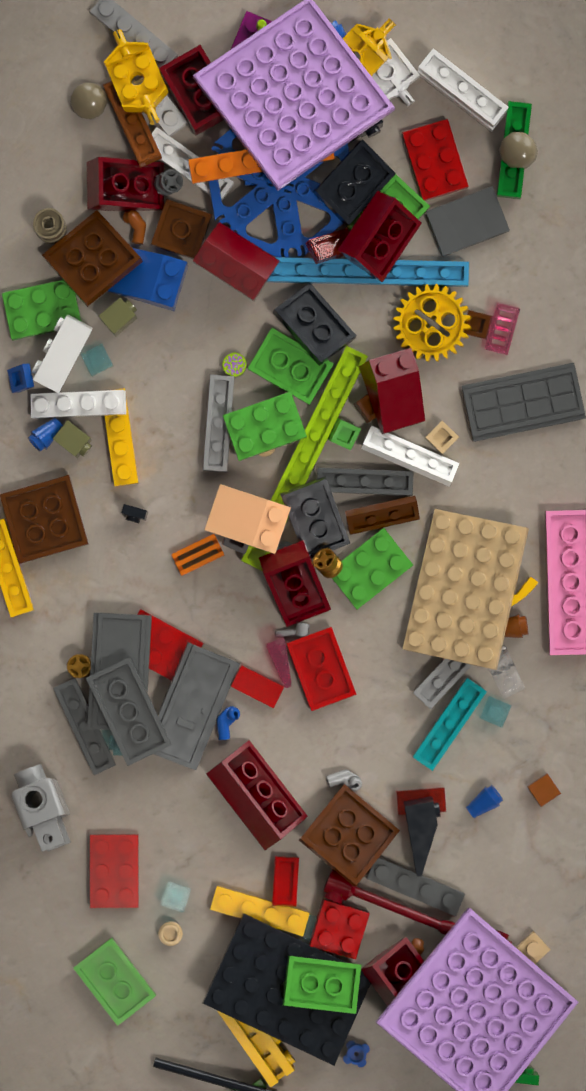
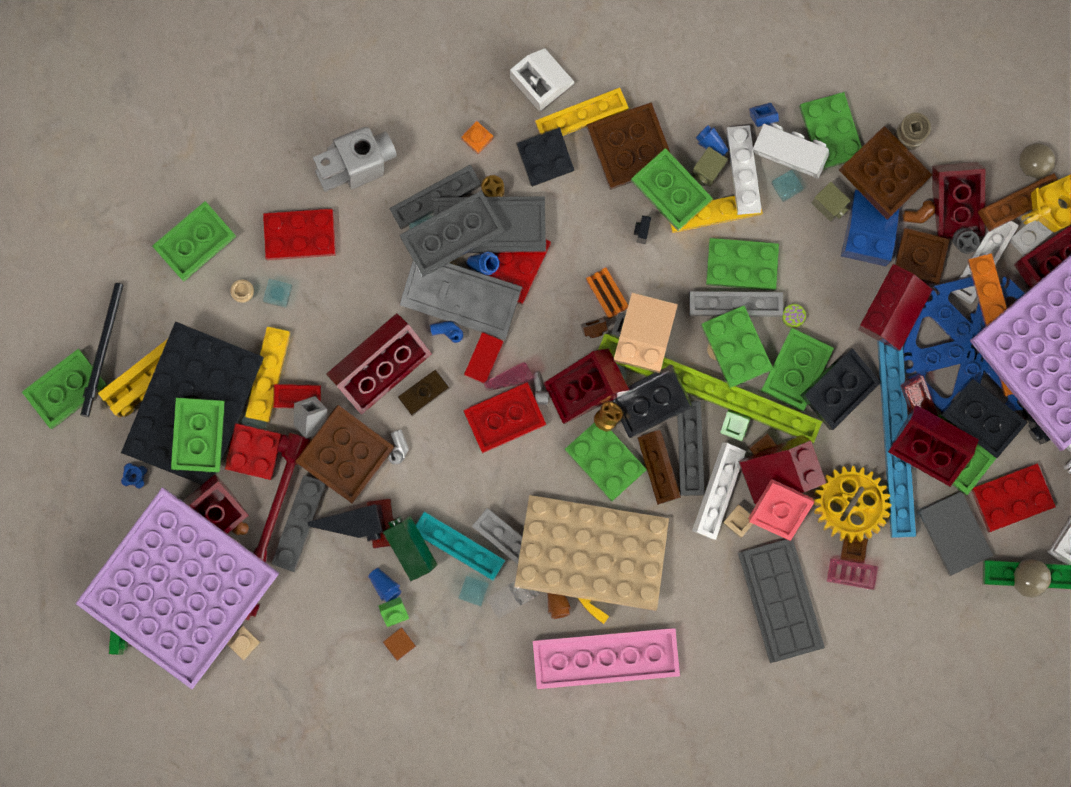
camera: 85 degrees right, 5 degrees down
(23, 679) = (477, 137): none -> orange plate
(50, 609) = (545, 156): none -> black plate
(96, 480) = (671, 189): none -> bright green plate
(160, 679) = (484, 263): none -> blue cone
(176, 413) = (742, 264): none -> bright green plate
(234, 570) = (594, 328): none -> reddish brown plate
(289, 750) = (423, 392): none -> dark brown plate
(308, 869) = (309, 416): none -> light grey brick
(435, 395) = (781, 510): none -> coral plate
(449, 773) = (409, 547): none -> dark green brick
(512, 794) = (393, 612): none -> bright green plate

